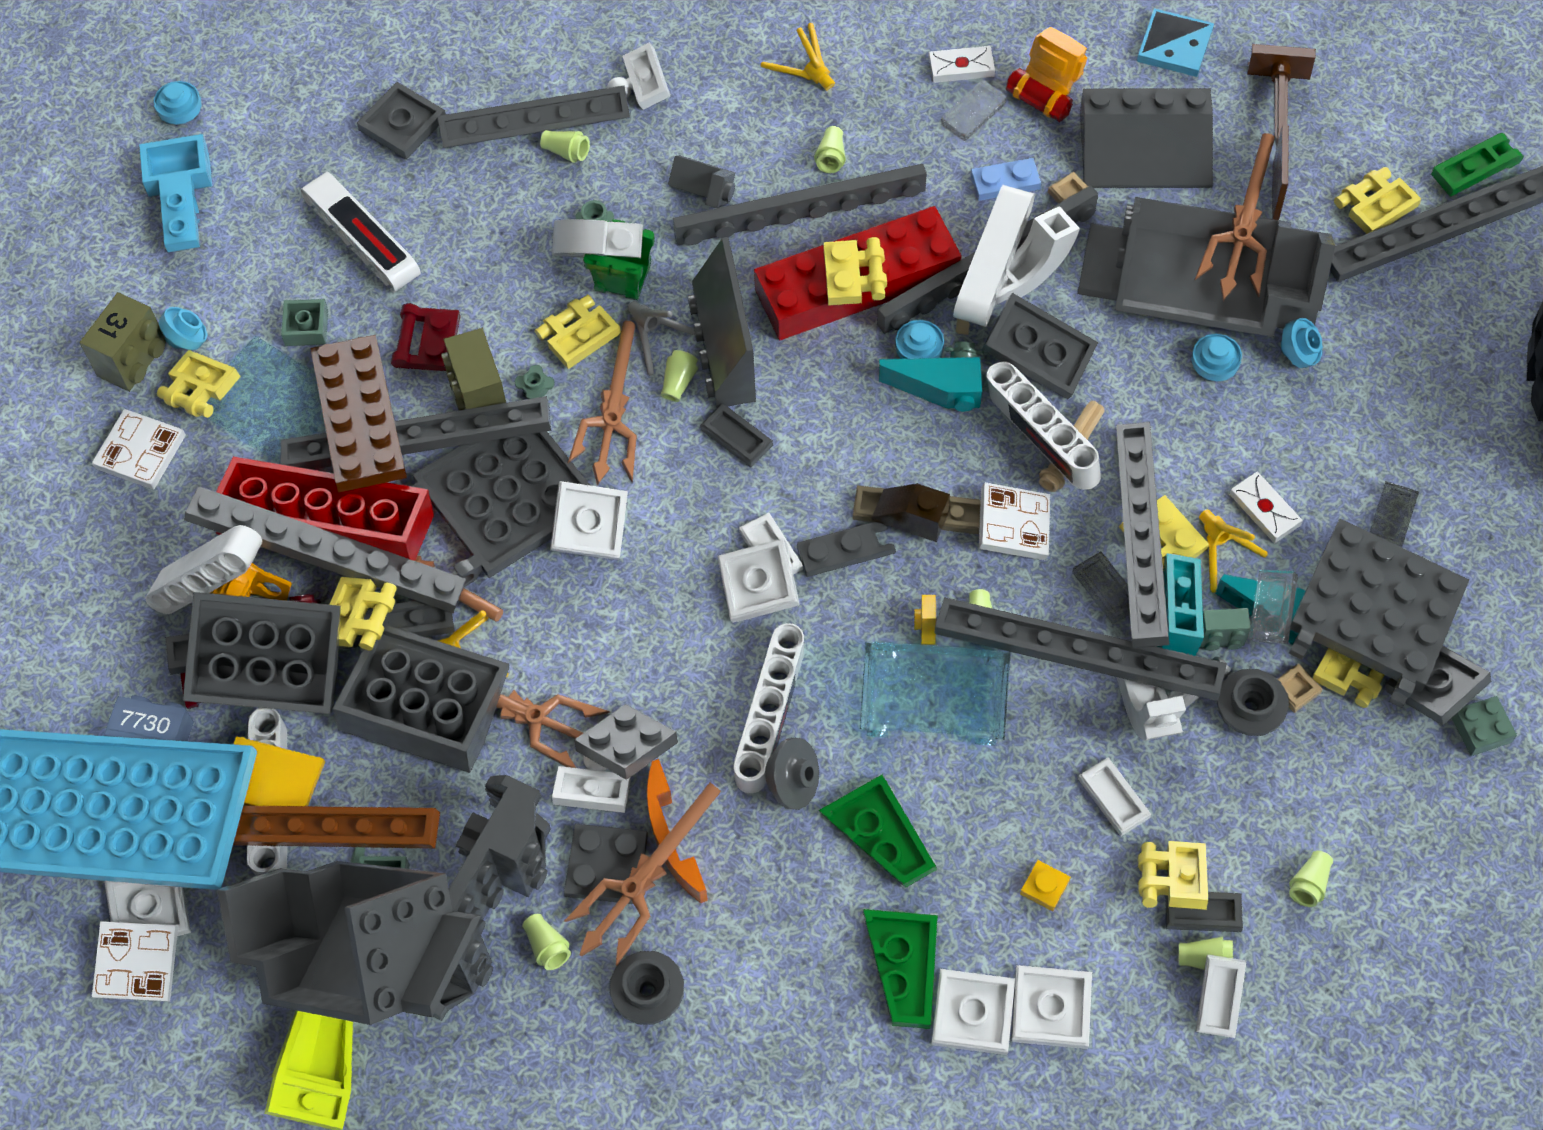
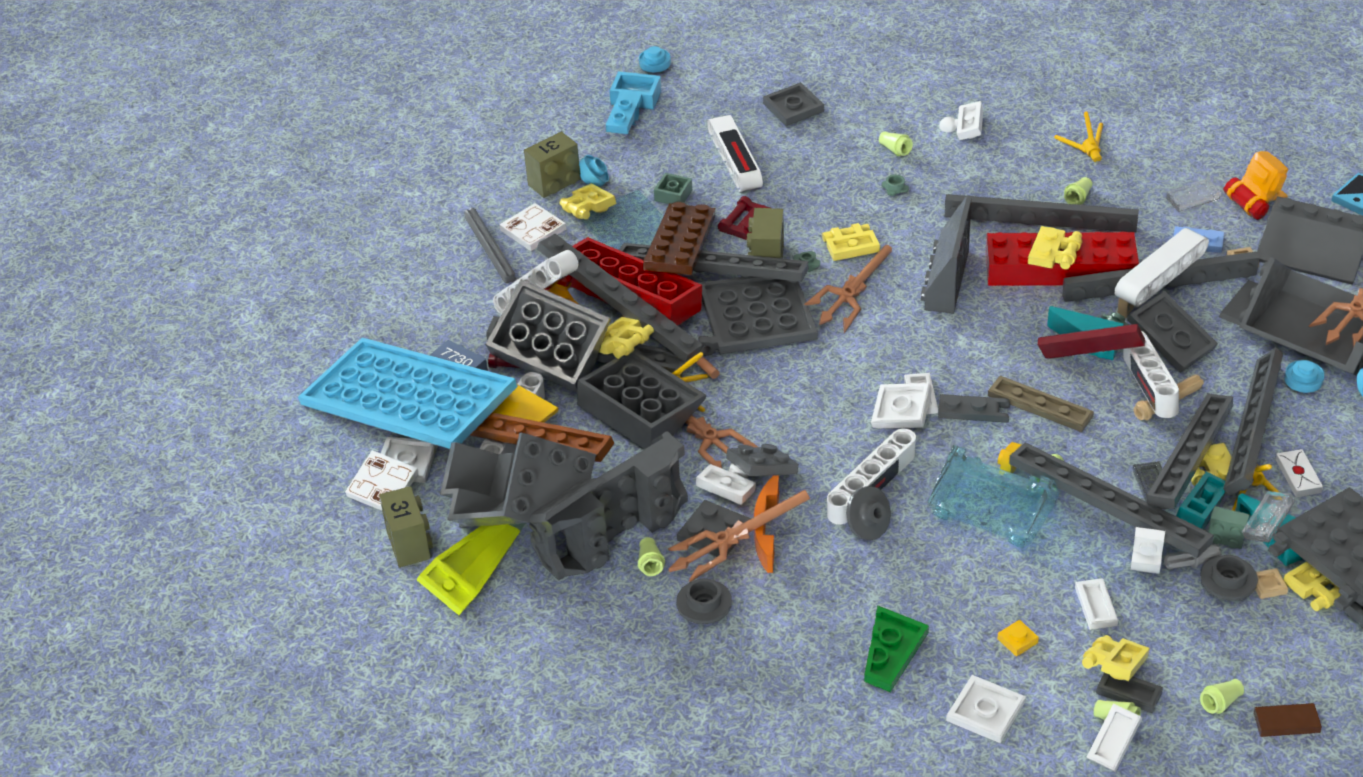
camera: 25 degrees right, 20 degrees down
(93, 502) = (489, 245): none -> dark grey axle
(208, 1030) = (406, 526): none -> olive brick
(533, 116) = (878, 121): dark grey plate -> none
(589, 520) = (802, 339): white tile -> none
(596, 237) = (883, 182): white arch -> none
(621, 274) = (901, 210): green piece -> none
(648, 321) = (902, 249): light grey plant -> none
(678, 374) = (908, 280): yellowish green cone -> none
(703, 180) = (978, 182): dark grey bracket -> none
(736, 435) = (930, 326): dark grey tile -> none
(882, 830) = (915, 568): green wing -> none
(913, 510) = (1033, 395): dark brown slope -> none
(919, 340) = (1087, 305): medium azure plate -> none
(955, 402) = (1091, 341): none -> dark red tile
(961, 64) = (1198, 169): white tile -> none
(973, 1012) = (926, 692): white tile -> none
(1014, 521) = (1103, 425): white tile -> none
(1040, 254) = (1199, 279): white arch -> none
(1191, 456) = (1253, 422): none -> dark grey plate
(1394, 882) = (1287, 719): none -> reddish brown tile

